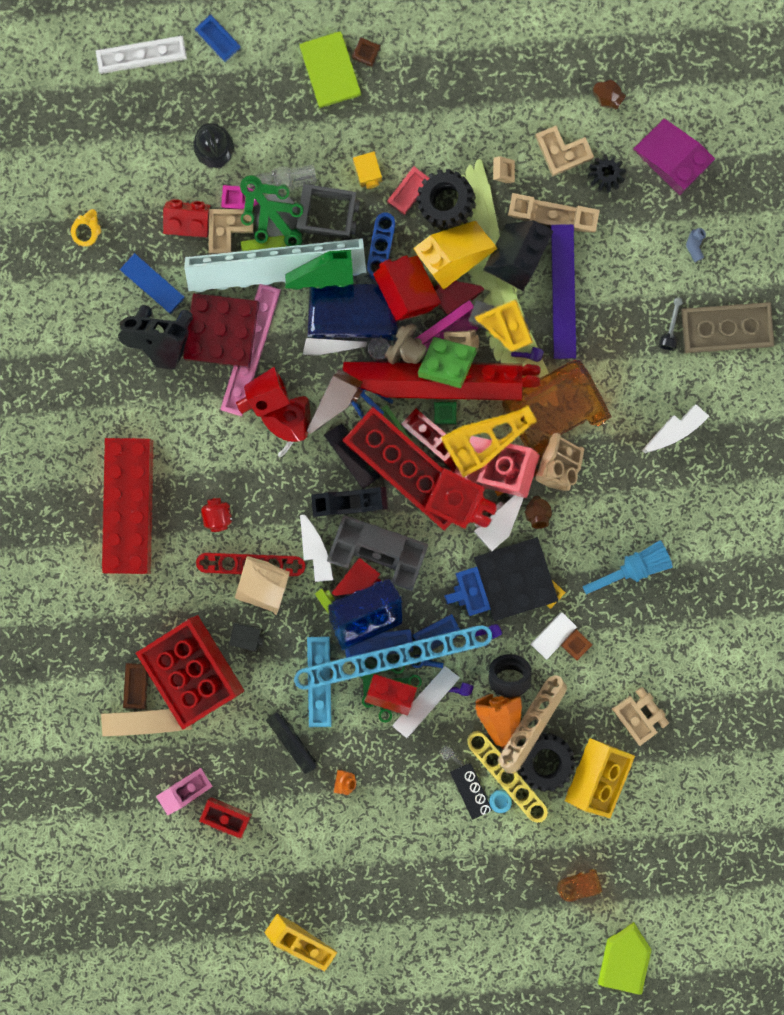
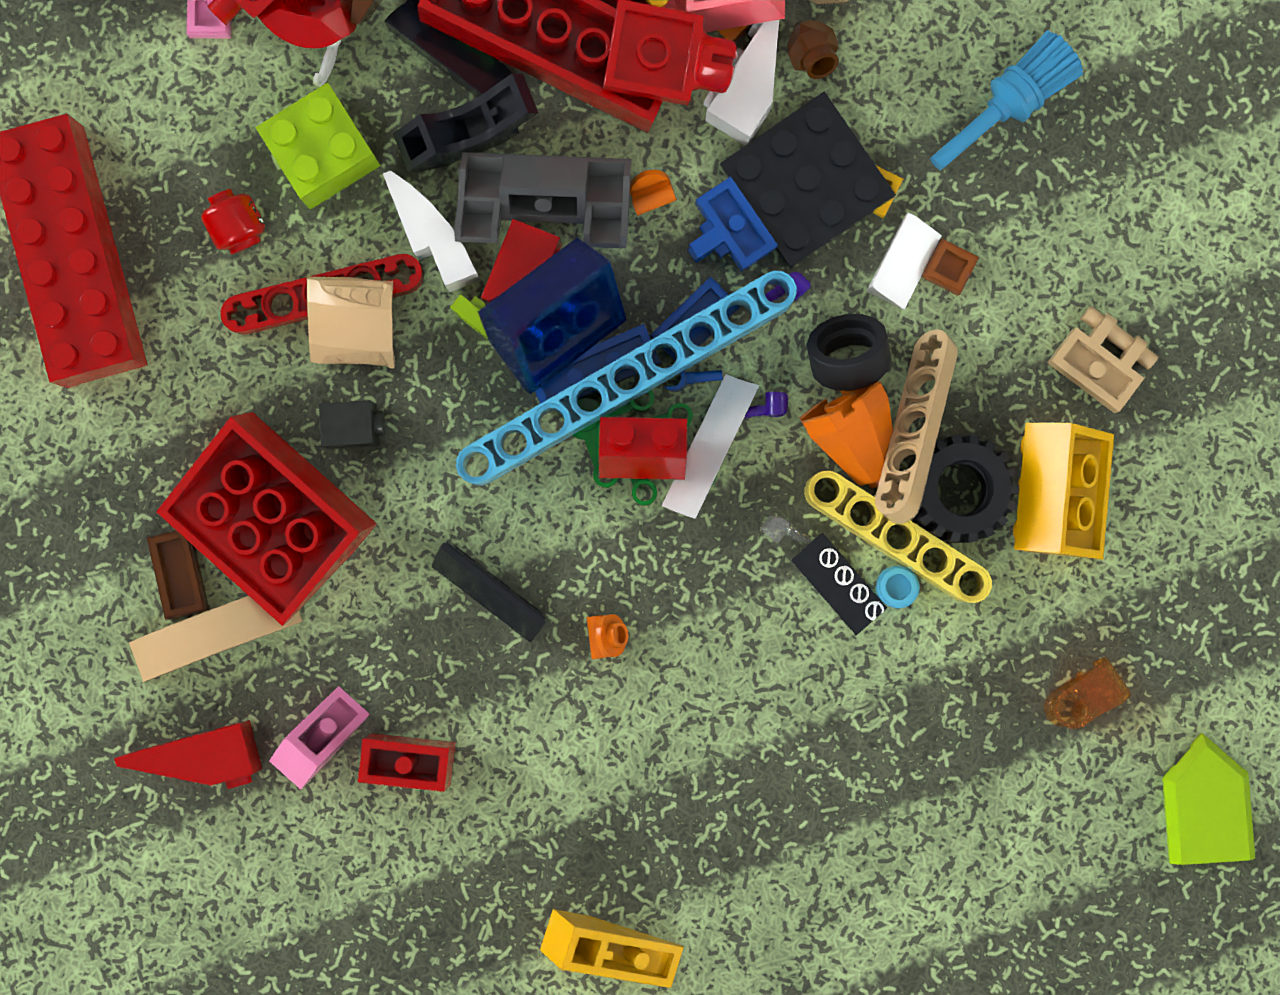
camera: 20 degrees left, 0 degrees up
(126, 785) = (203, 758): none -> red slope
(271, 489) = (318, 146): none -> lime brick
(319, 697) = (516, 490): medium azure tile -> none
(434, 562) = (651, 190): none -> orange plate

